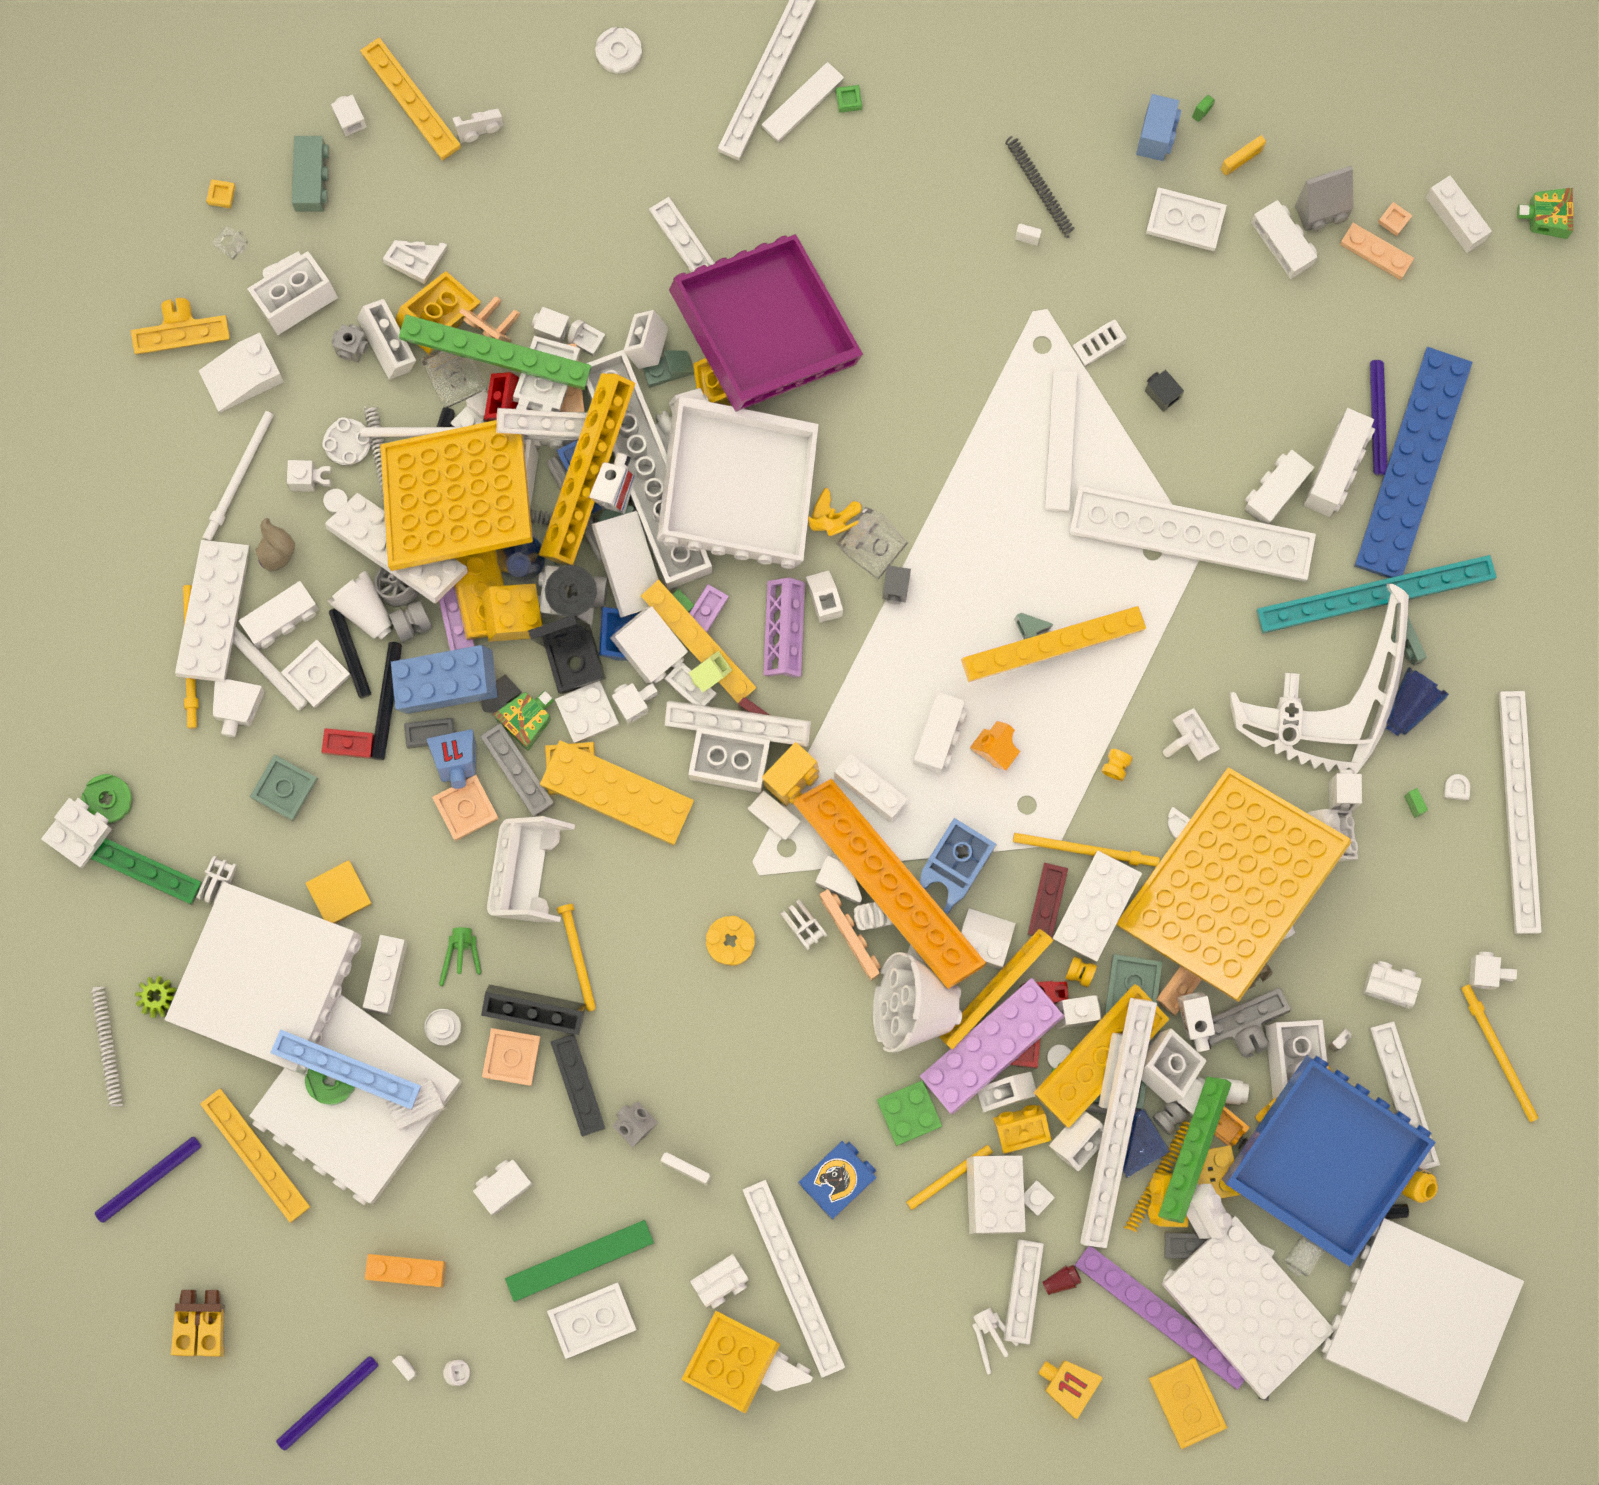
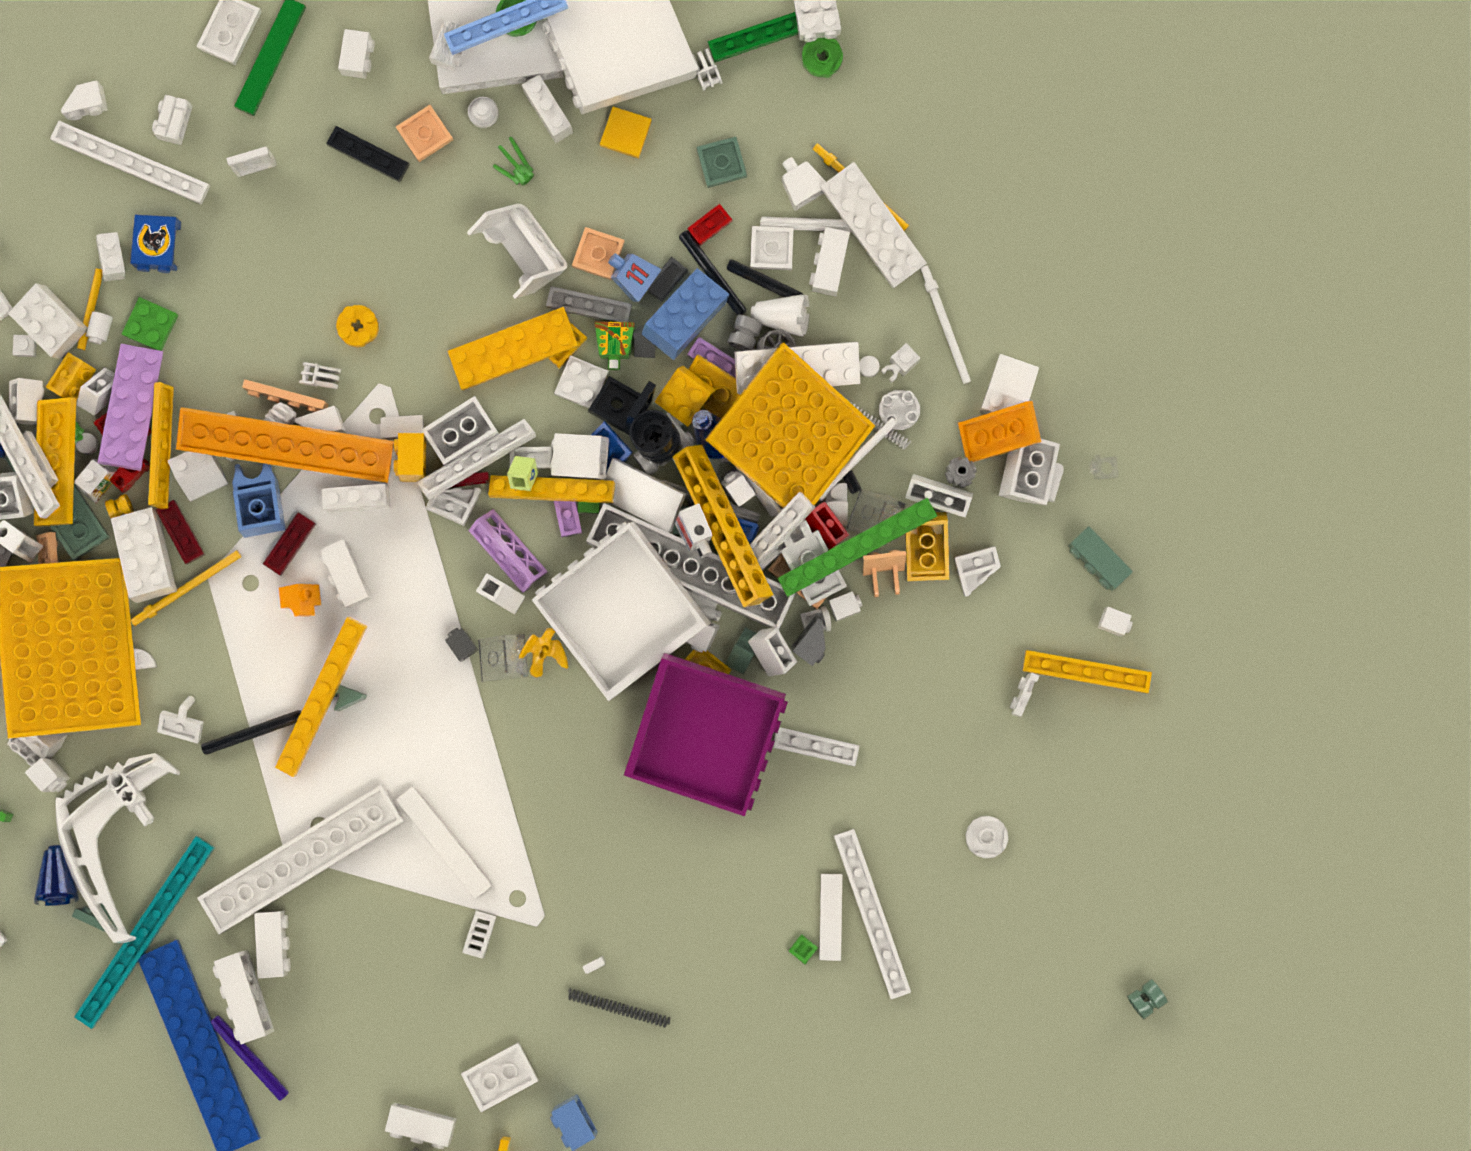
camera: 140 degrees right, 5 degrees up
(179, 329) = (1076, 380): yellow plate -> none
(221, 193) = (1142, 492): yellow plate -> none
(275, 547) = (873, 297): dark tan hair -> none
(286, 338) = (1000, 432): none -> light orange plate
(533, 1009) = (435, 170): black brick -> none
(543, 497) = (737, 488): none -> white brick
(577, 955) = (475, 249): yellow bar -> none
(606, 321) = (811, 642): none -> dark grey slope
(631, 702) = (558, 413): white brick -> none
(634, 1123) = (310, 161): light grey brick -> none
(730, 1361) = (120, 77): yellow plate -> none
(790, 703) = (454, 504): none -> white wing
(888, 1203) = (110, 256): none -> white brick
(912, 1004) = (200, 381): white cone -> none
(957, 1149) = (98, 327): none -> white brick
(963, 805) = (289, 544): none -> dark red tile
(1117, 763) = (214, 661): yellow wheel -> none
(1139, 675) = (250, 732): none -> black axle
(1163, 390) = (407, 940): black brick -> none

